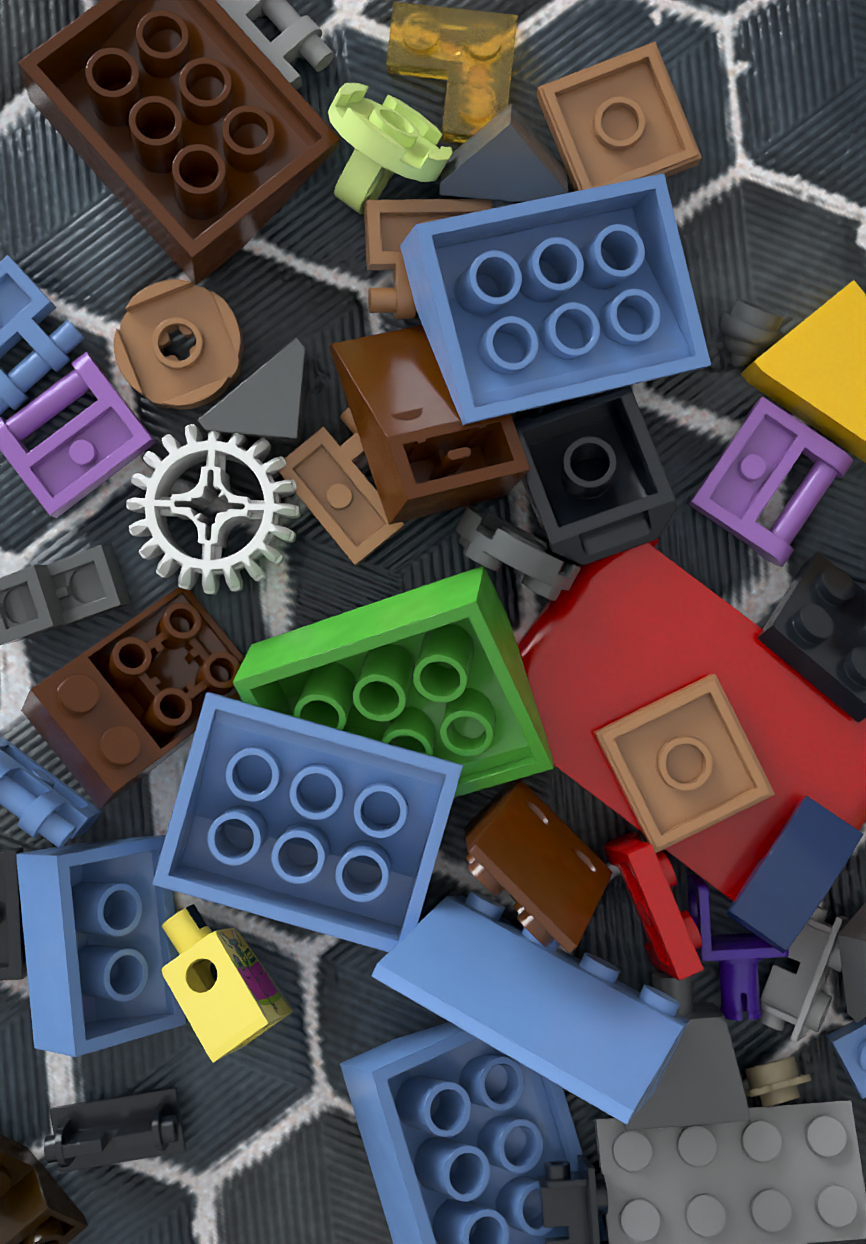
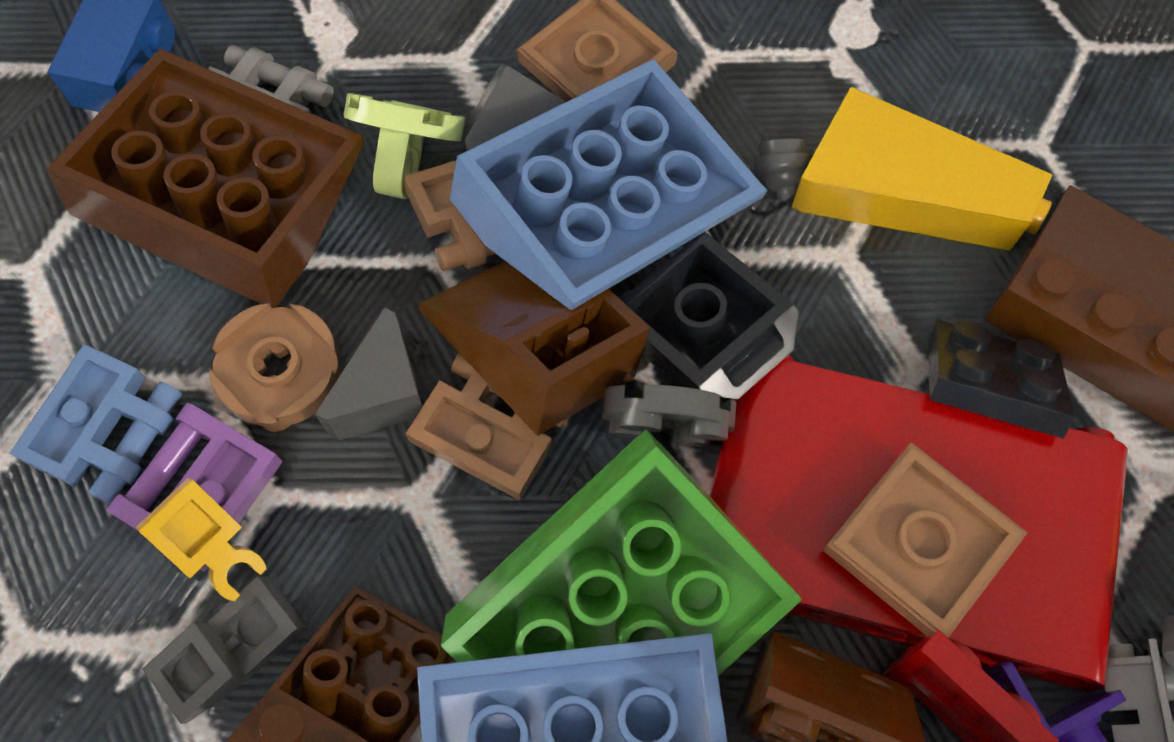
camera: 25 degrees left, 20 degrees down
(59, 491) = (197, 532): none -> yellow plate
(213, 539) = (335, 501): white gear -> none
(464, 48) = (441, 49): clear yellow plate -> none
(754, 469) = (844, 277): medium lavender plate -> none
(794, 874) = (1090, 607): dark blue slope -> none

